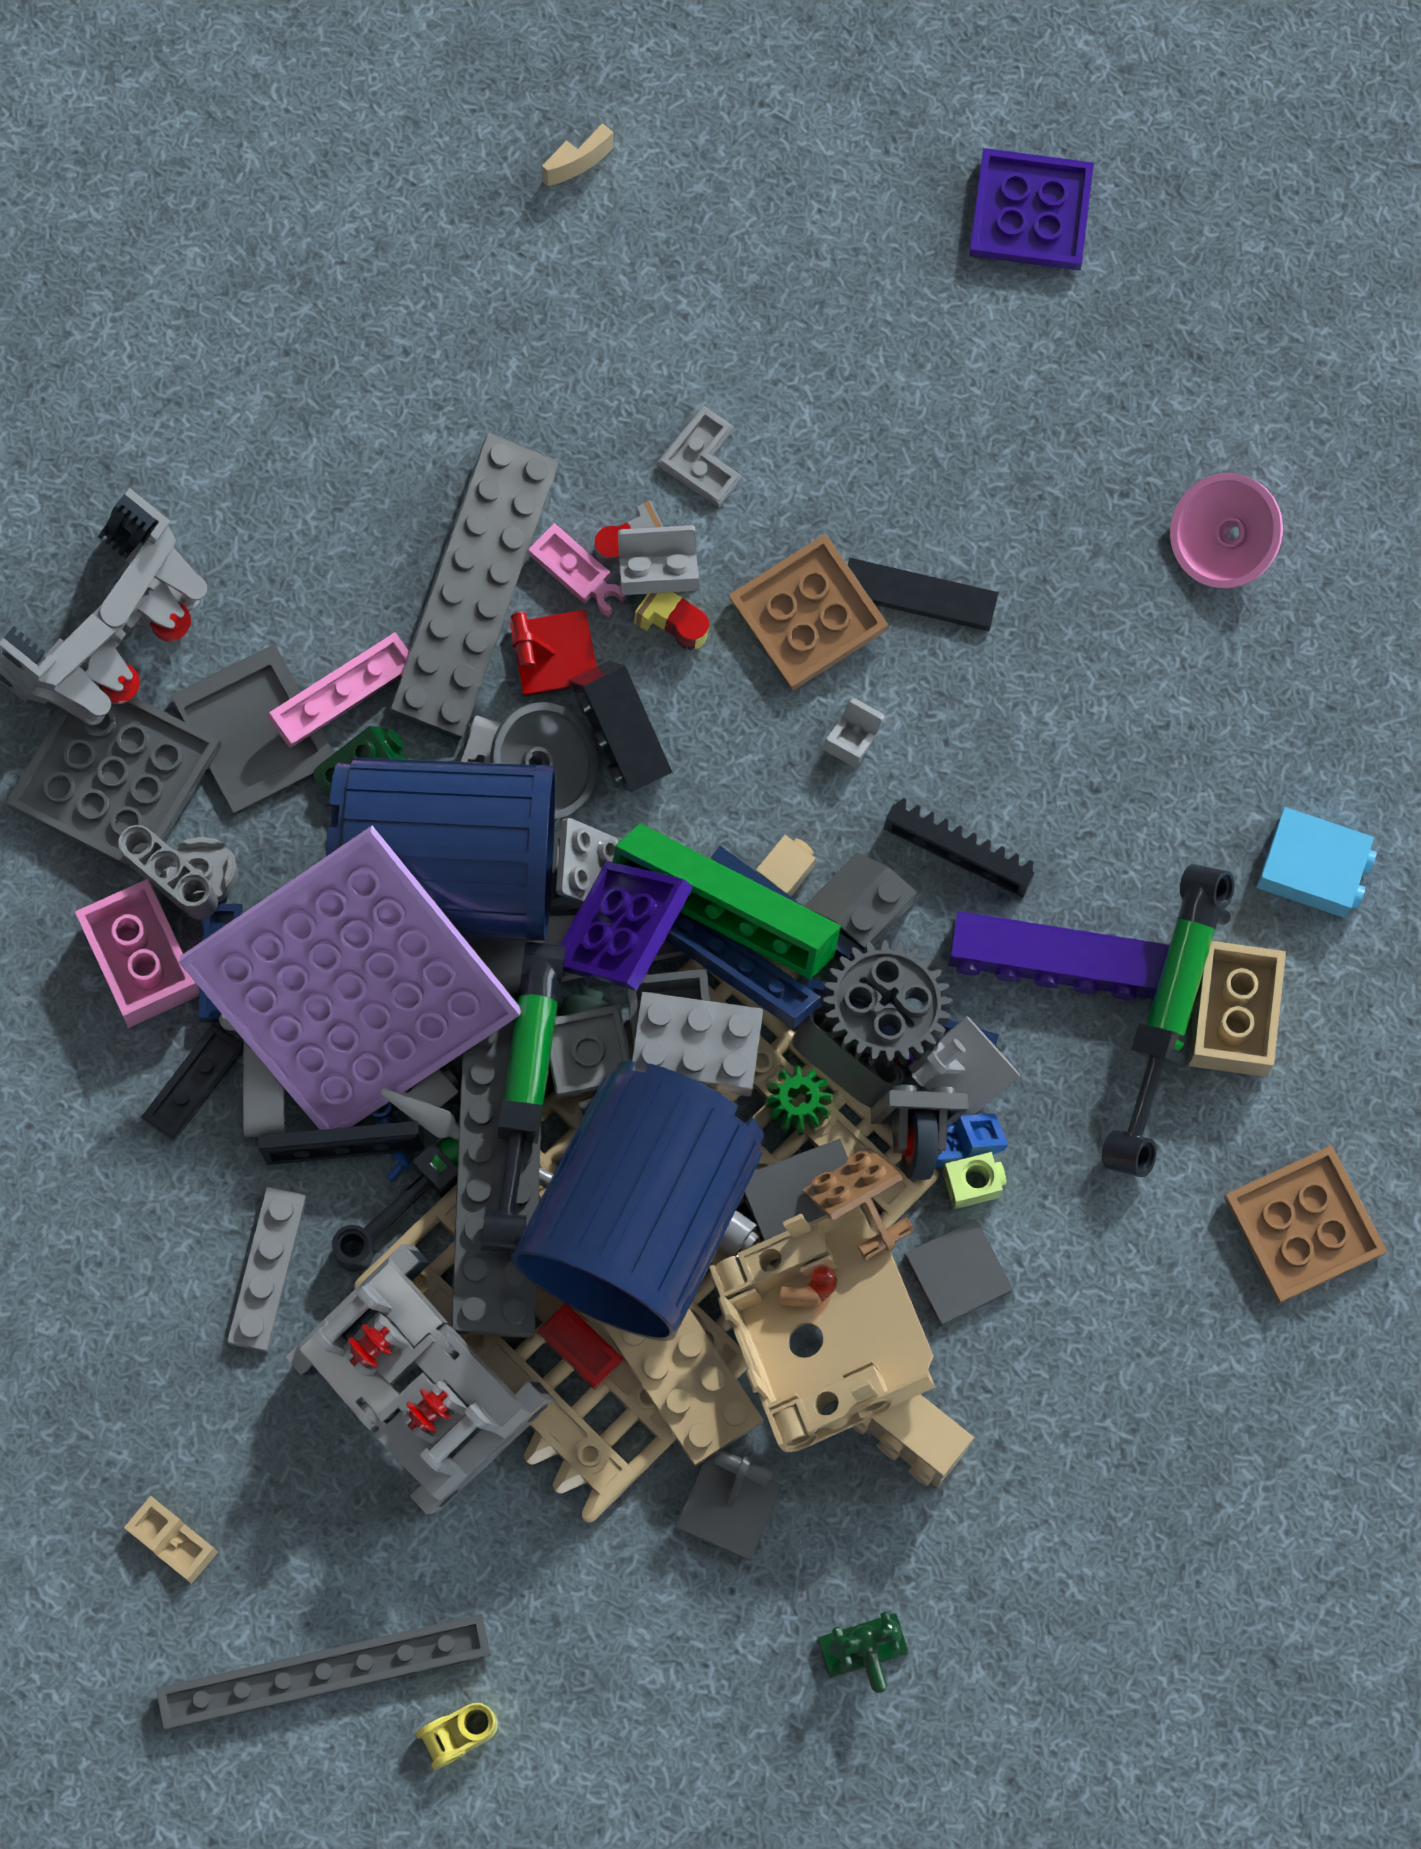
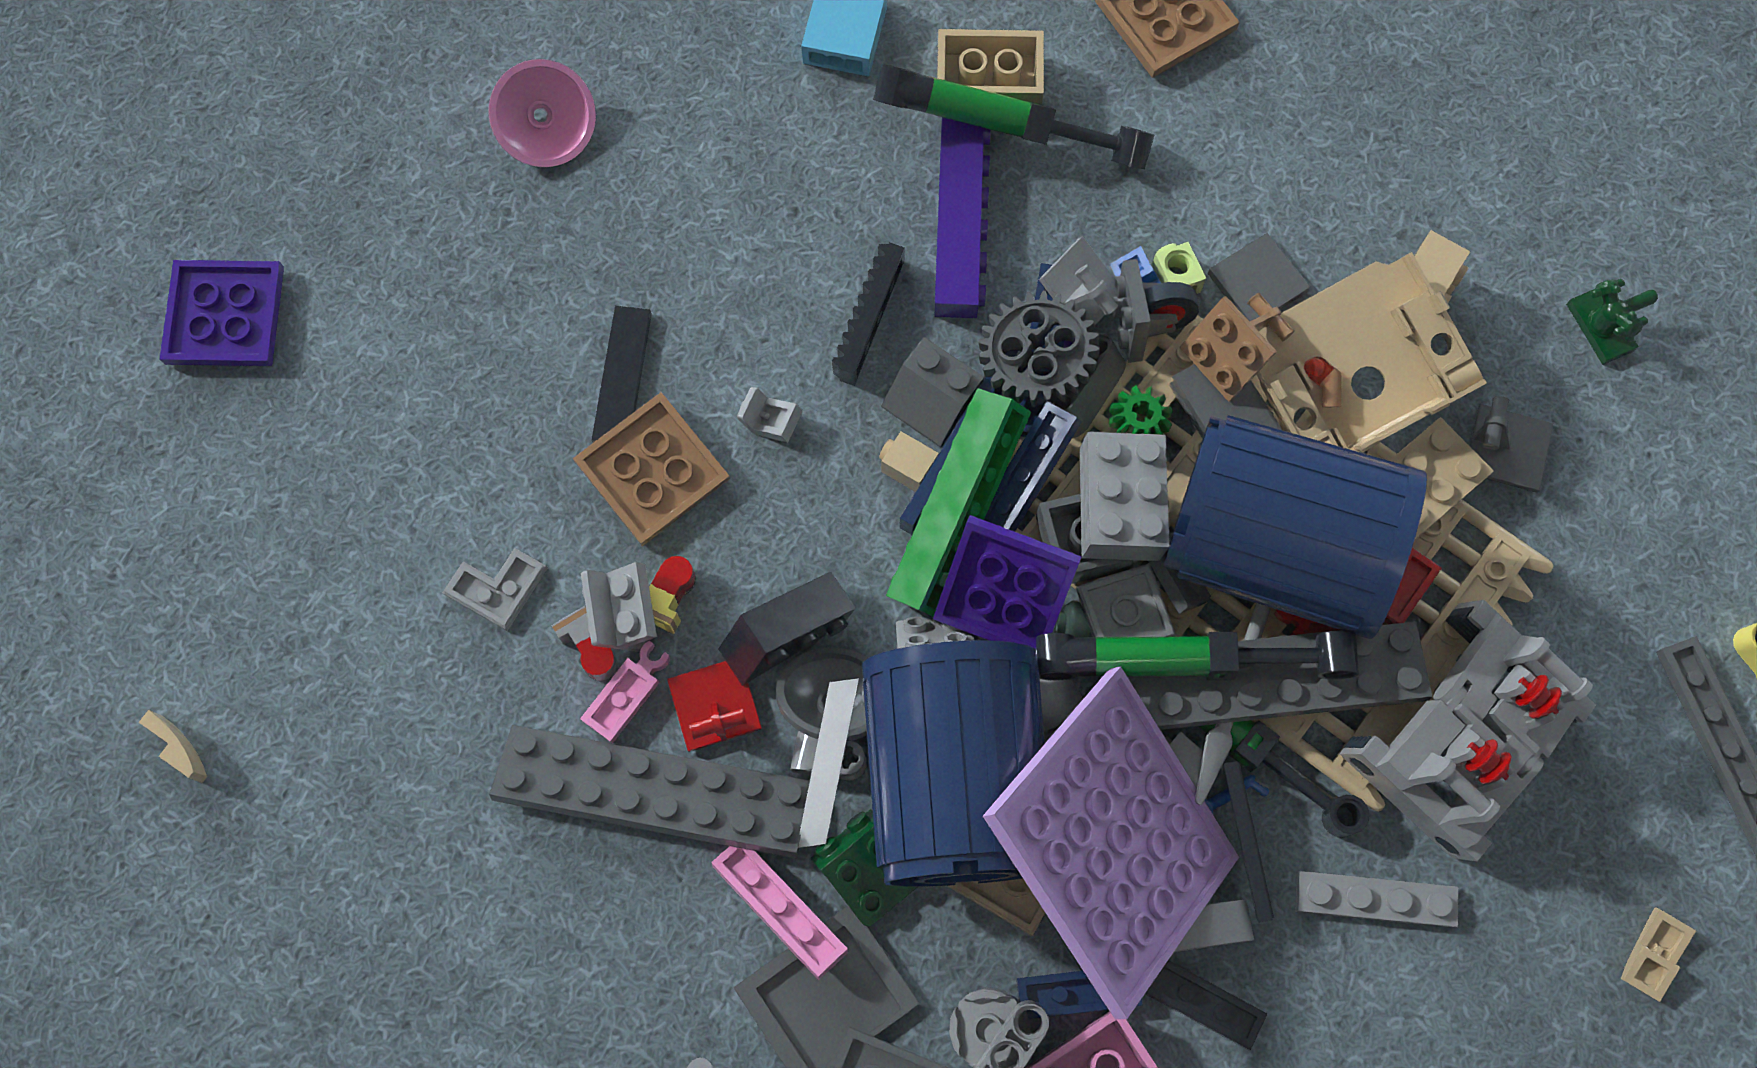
camera: 90 degrees left, 0 degrees up
(470, 740) = (827, 762): none -> white sticker

